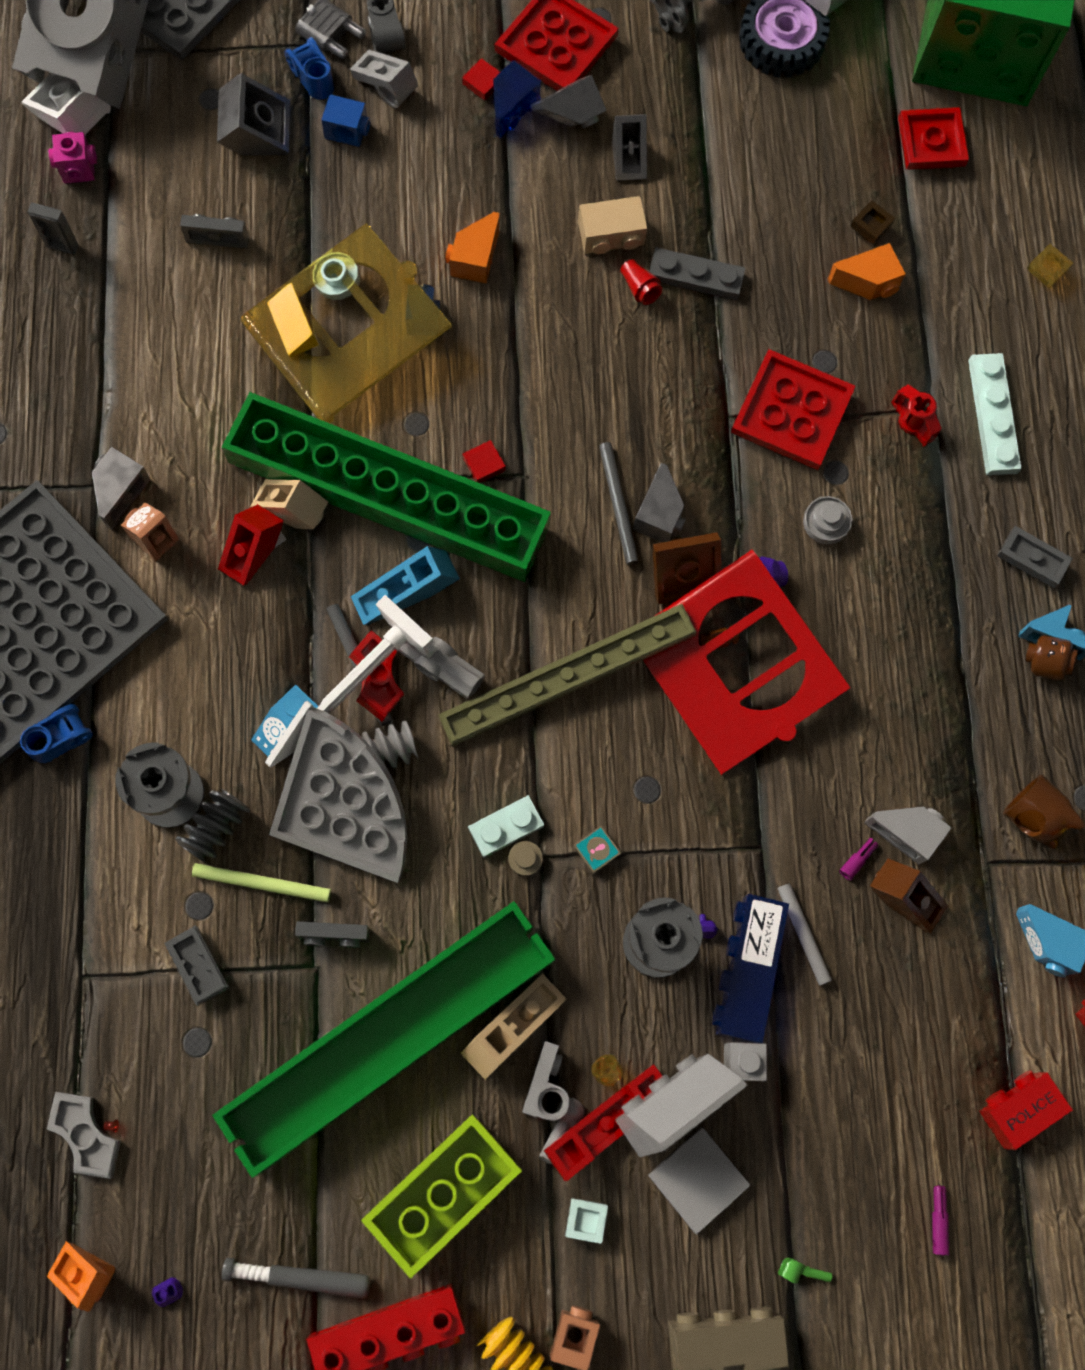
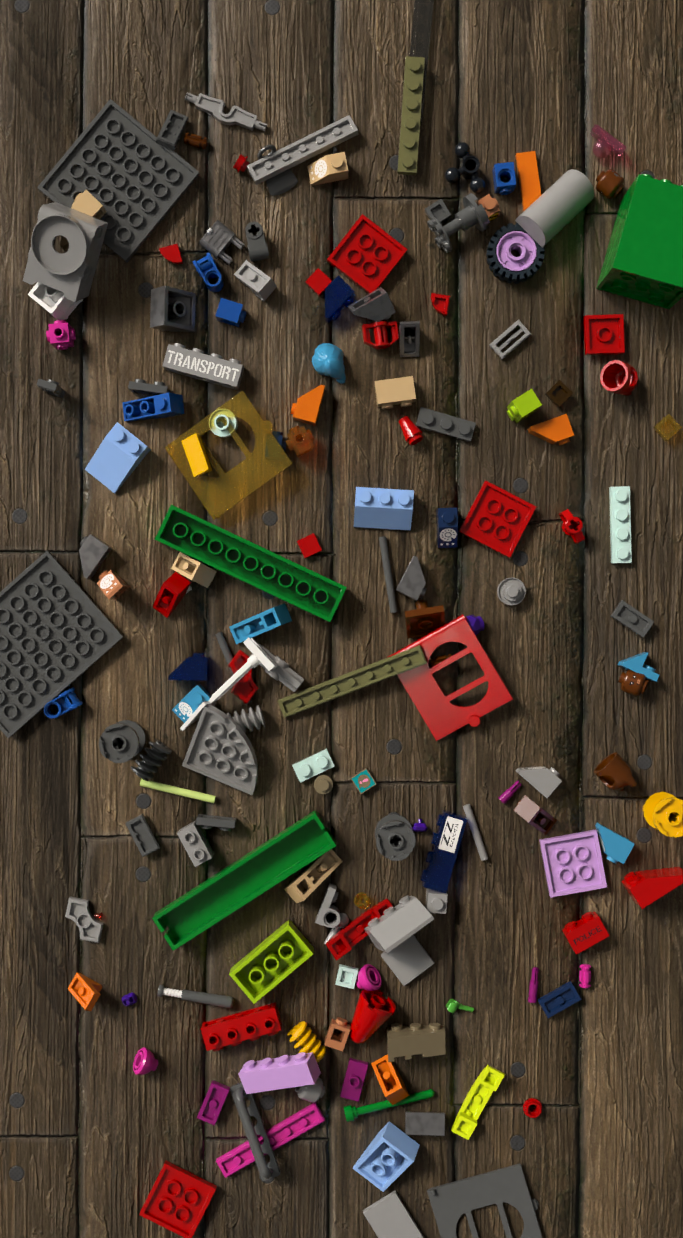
camera: 10 degrees right, 15 degrees up
(161, 333) = (117, 457): none -> light blue slope
(224, 257) = (153, 407): none -> blue slope
(252, 46) = (171, 254): none -> red tile
(286, 665) = (192, 668): none -> clear blue slope
(294, 974) = (195, 843): none -> light grey brick
(302, 197) = (203, 367): none -> light grey brick
(463, 298) = (300, 447): none -> clear orange brick
(505, 186) = (329, 361): none -> dark azure hair
(582, 138) = (380, 334): none -> red piece
(604, 396) = (383, 508): none -> light blue slope
(628, 1222) = (368, 978): none -> dark pink brick
(635, 1295) = (370, 1015): none -> red cone
(674, 104) = (440, 303): none -> red tile
(712, 422) = (447, 527): none -> dark blue slope
(771, 166) = (497, 350): none -> light grey tile
(821, 233) = (523, 406): none -> lime piece
(966, 190) = (619, 377): none -> red piece
(986, 981) = (573, 863): none -> lavender plate
(992, 1245) = (559, 999): none -> dark blue plate
(1034, 1196) = (585, 976): none -> dark pink piece

